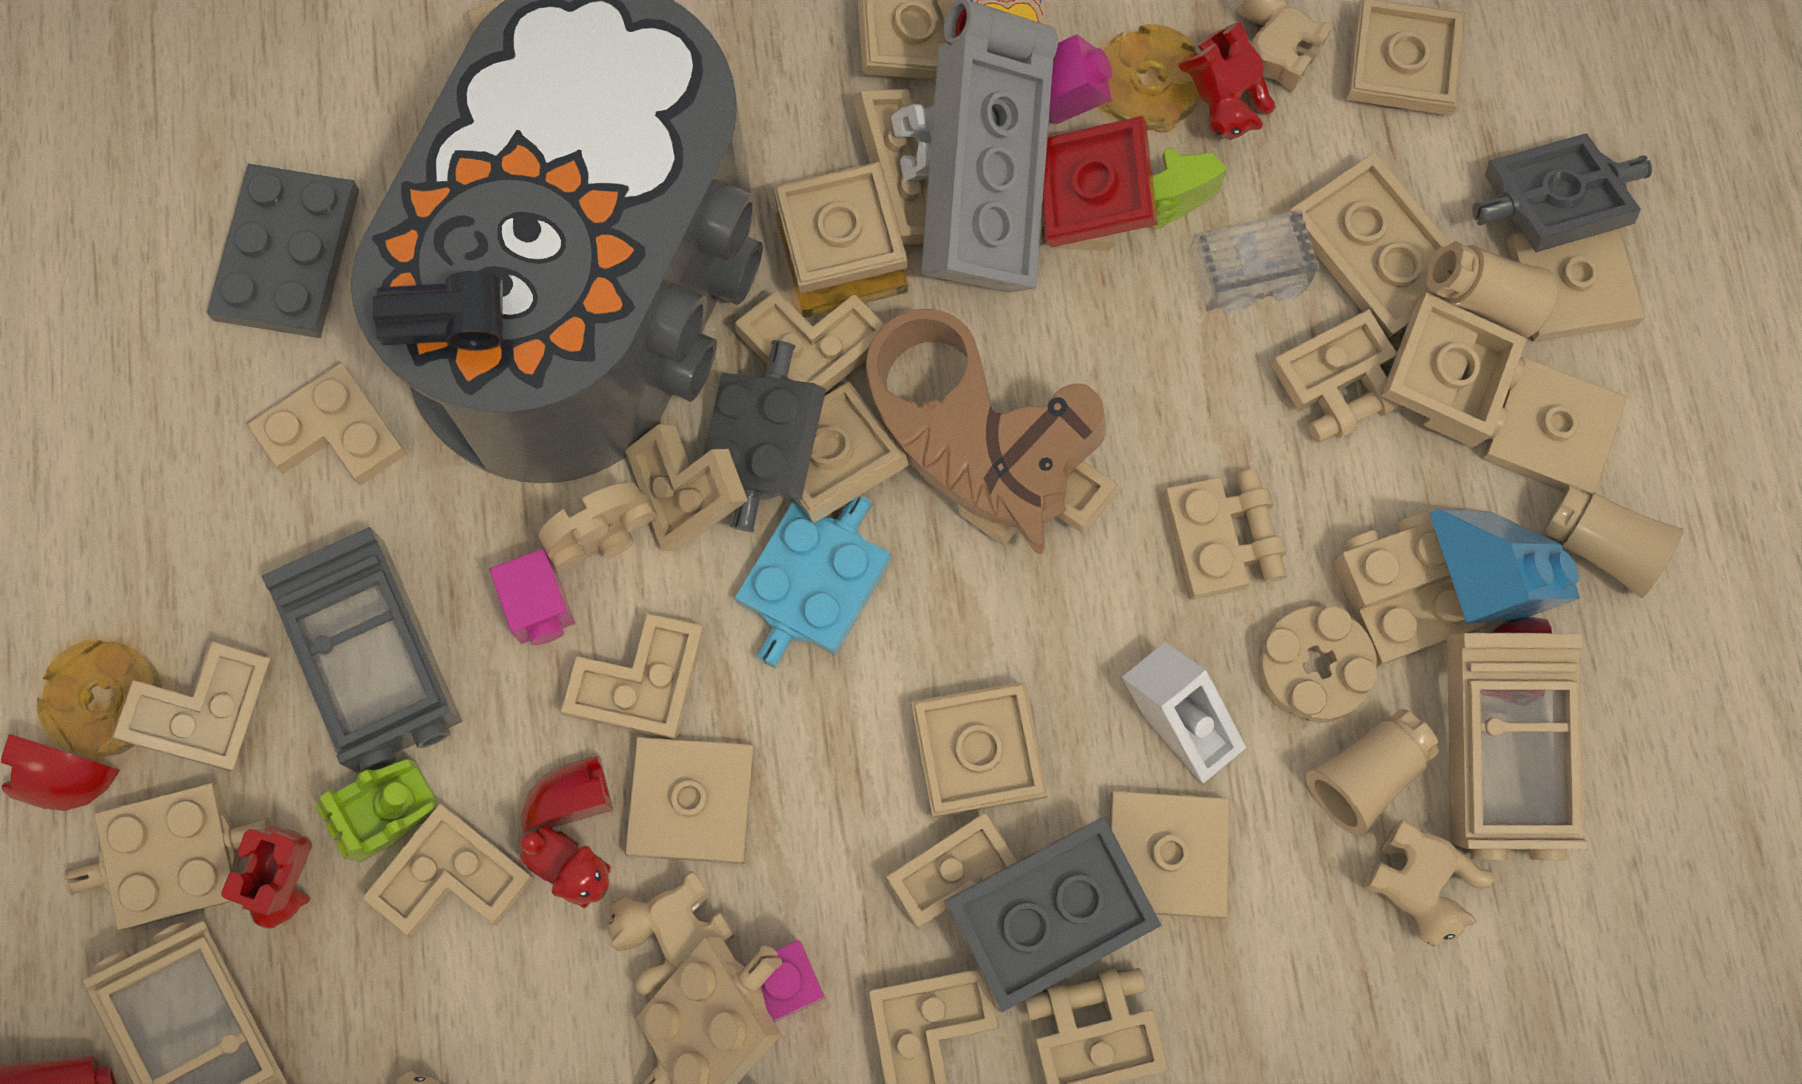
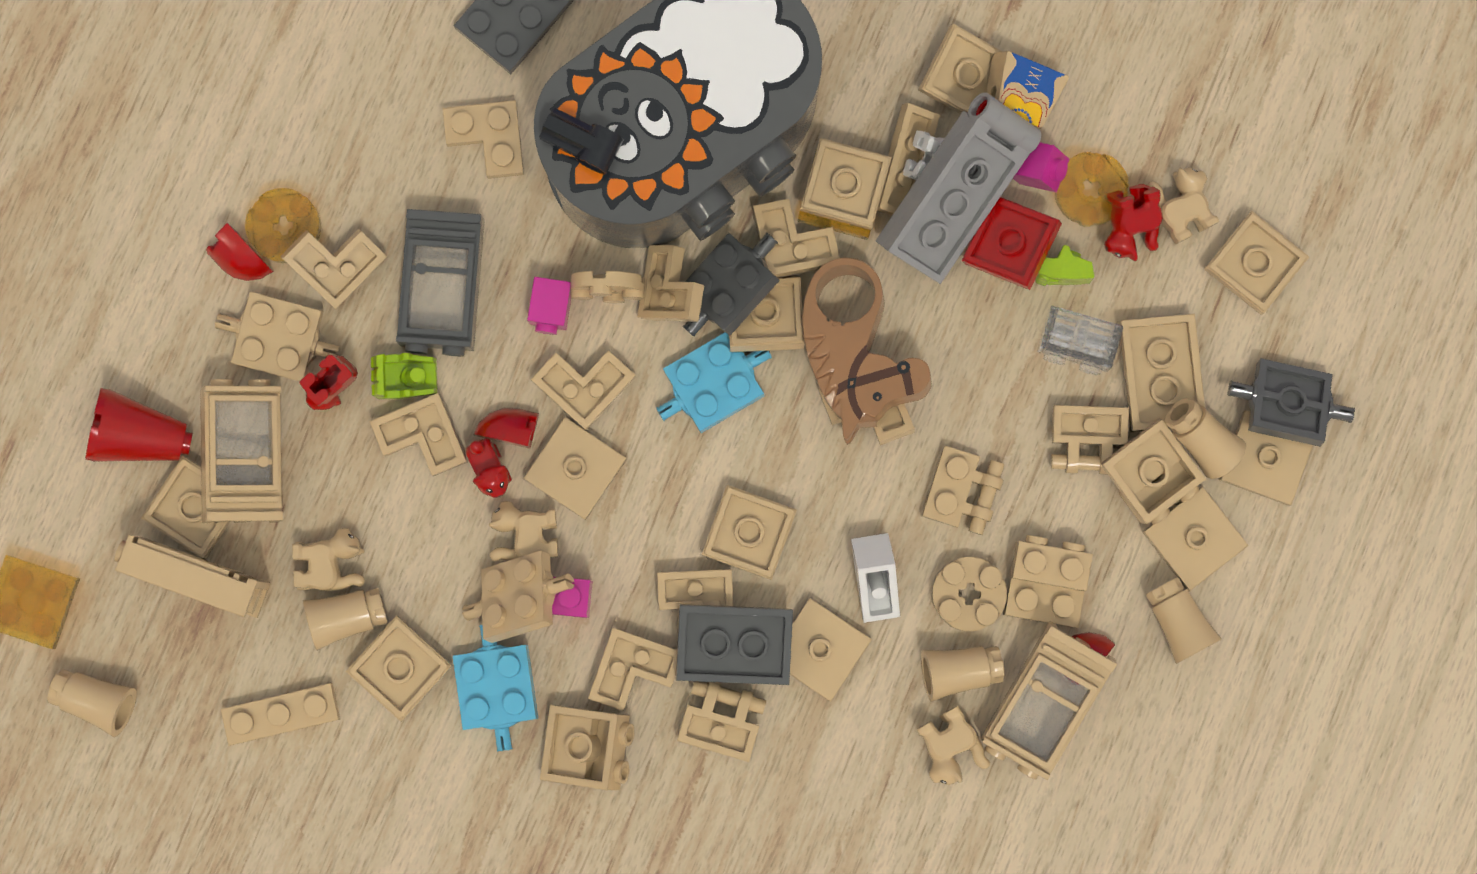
camera: 30 degrees right, 10 degrees up
(1502, 566) = (1103, 598): dark azure slope -> none

